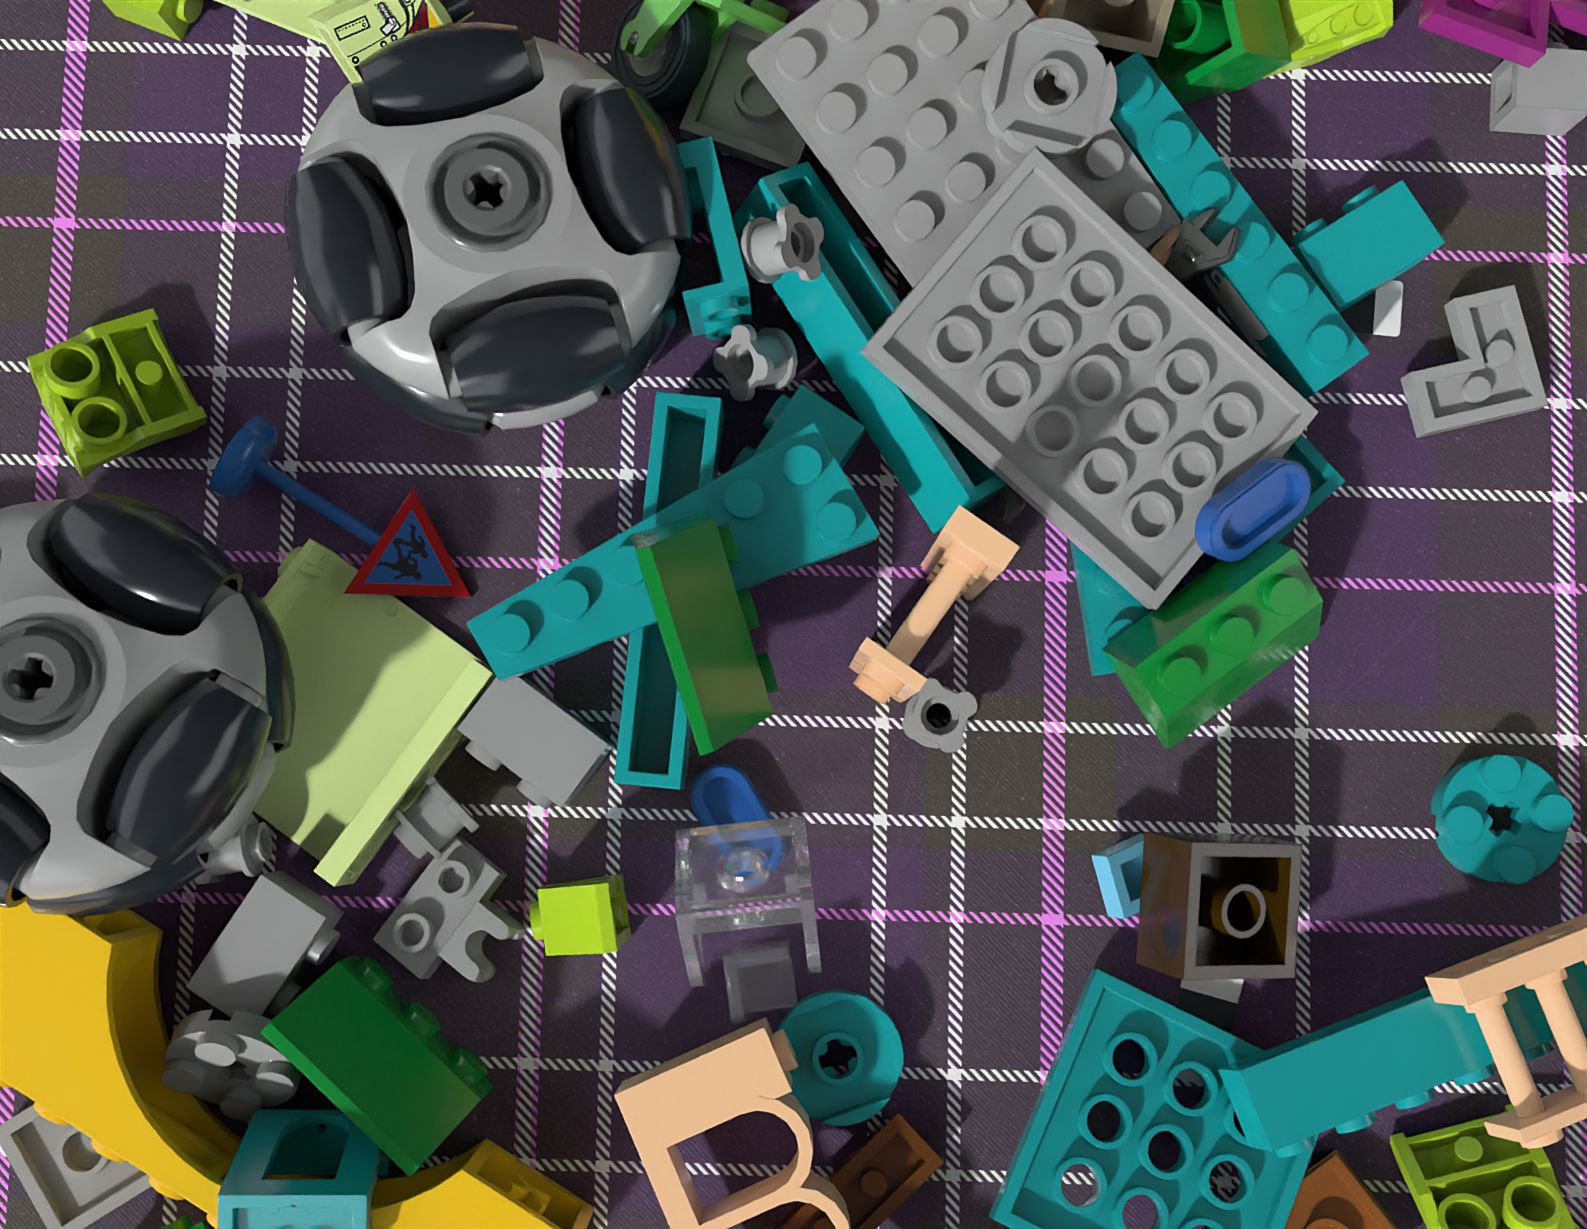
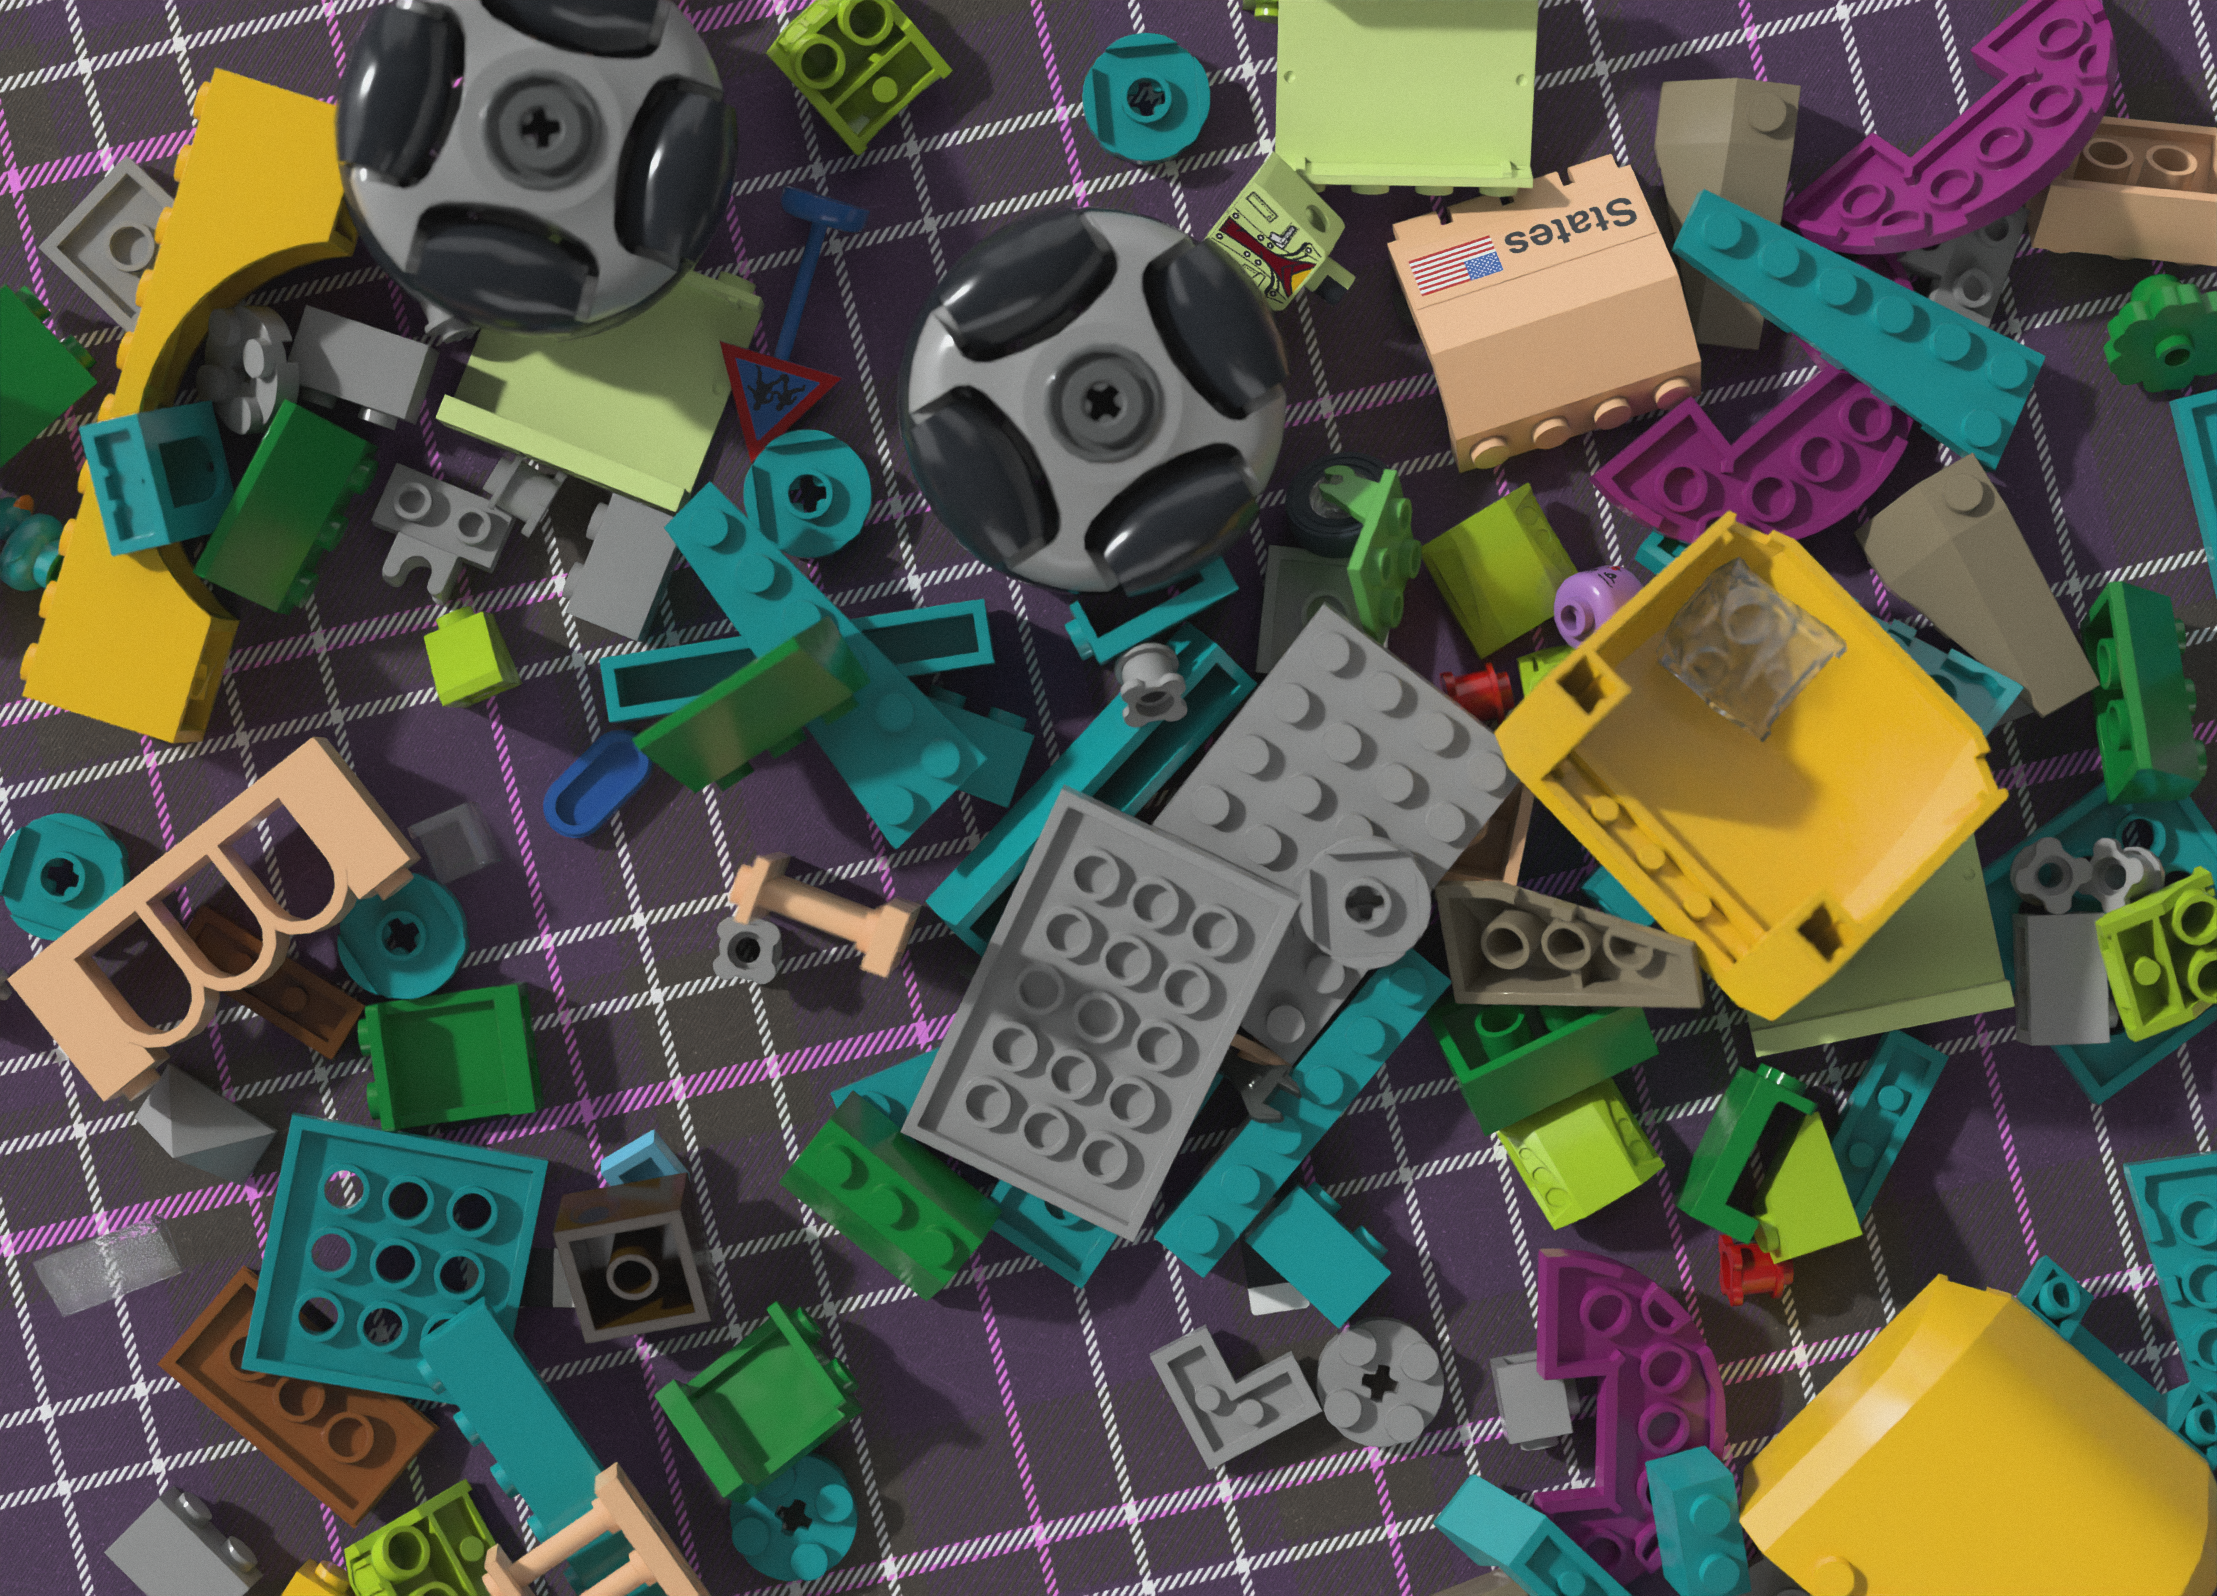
camera: 80 degrees right, 5 degrees up
(214, 112) = (1116, 77): none -> teal plate
(493, 519) = (831, 465): none -> teal plate
(716, 901) = (513, 788): clear hose -> none
(756, 360) = (1051, 683): light grey brick -> none
(970, 1040) = (451, 1057): none -> green panel
(1252, 508) = (1020, 1200): blue tile -> none
(1389, 818) = (762, 1404): none -> green panel
(1522, 211) = (1399, 1413): none -> light grey plate

